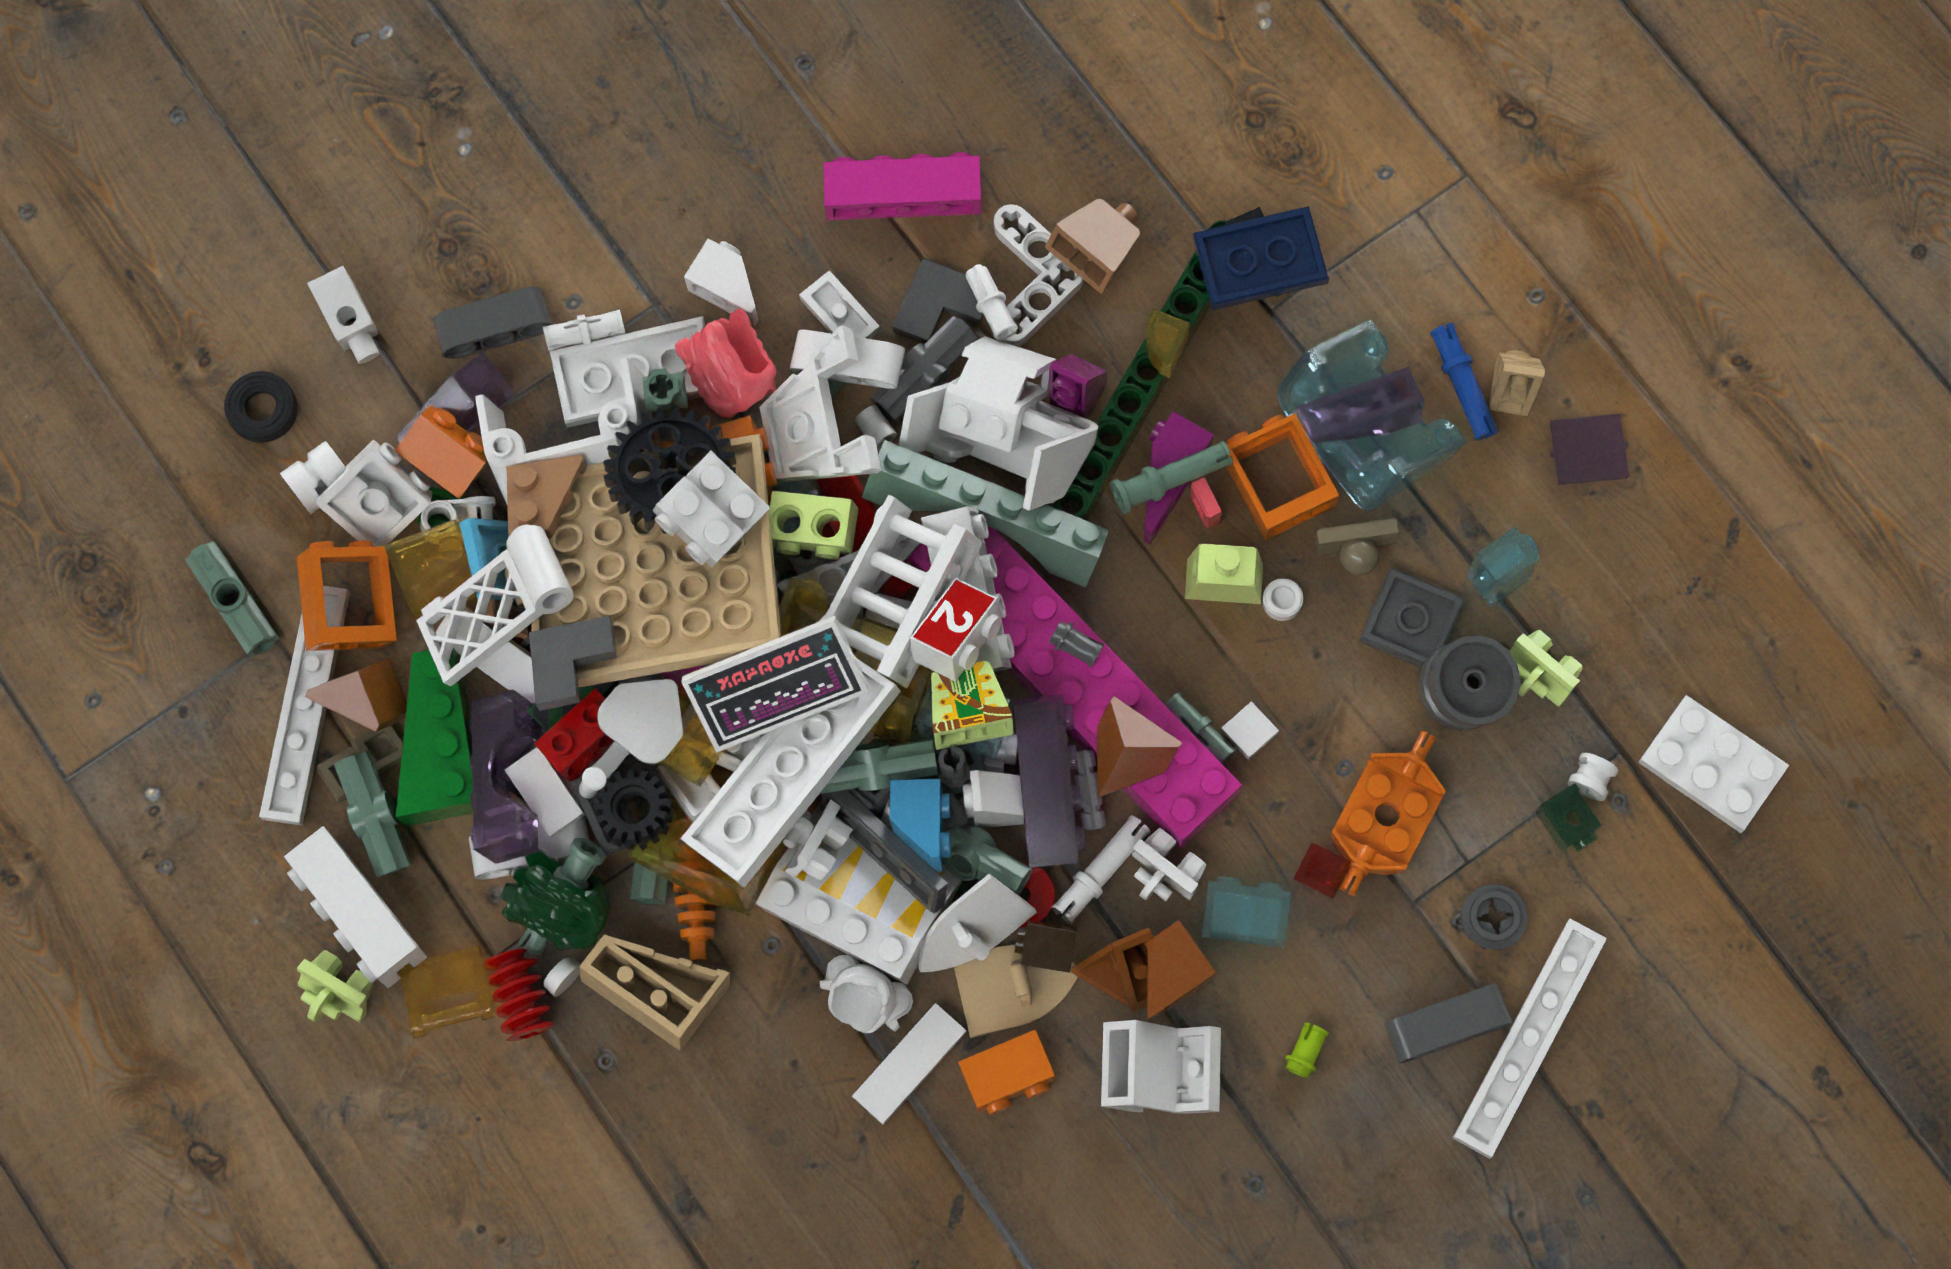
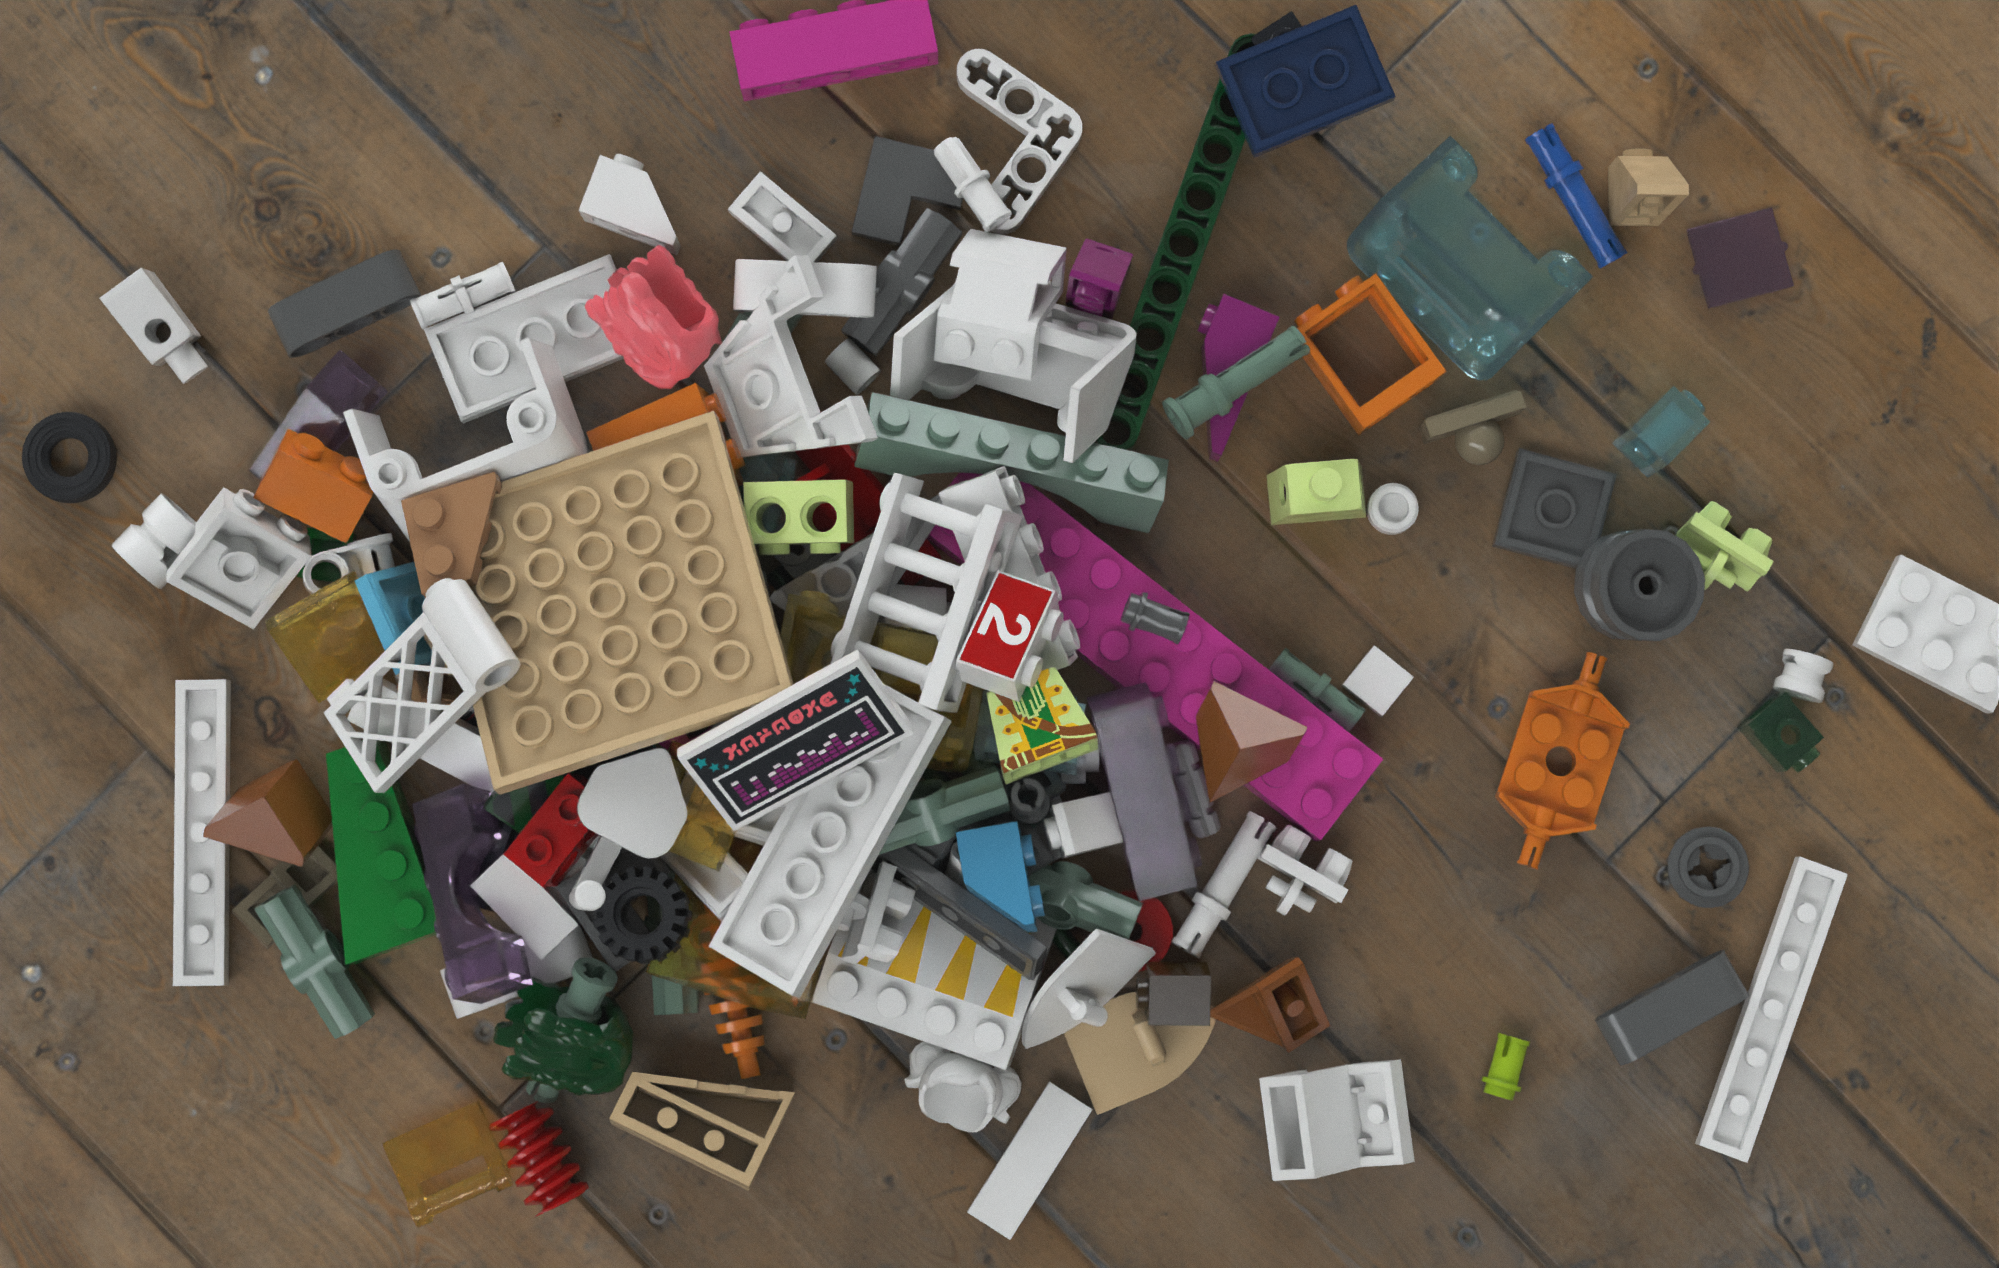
camera: 20 degrees left, 10 degrees up
(220, 581) = (61, 692): sand green piece -> none
(317, 634) = (187, 705): orange window -> none
(329, 994) = (288, 1176): yellowish green hips -> none
(354, 907) = (314, 1081): white brick -> none
(559, 652) = (515, 745): dark grey tile -> none
(562, 976) = (587, 1123): white tile -> none
(664, 391) = (584, 373): sand green piece -> none
(691, 444) = (590, 518): black gear -> none
(709, 510) = (674, 530): white plate -> none
(1007, 1072) = (1151, 1154): orange brick -> none
(1095, 241) = (1092, 84): torso -> none
(1165, 341) = (1201, 207): clear yellow brick -> none
(1174, 969) = (1336, 1002): dark orange slope -> none
(1205, 503) = (1280, 402): coral tile -> none
(1246, 912) = (1409, 912): clear light blue brick -> none
(1322, 870) = (1493, 844): clear red plate -> none
(1364, 409) = (1461, 257): clear purple slope -> none

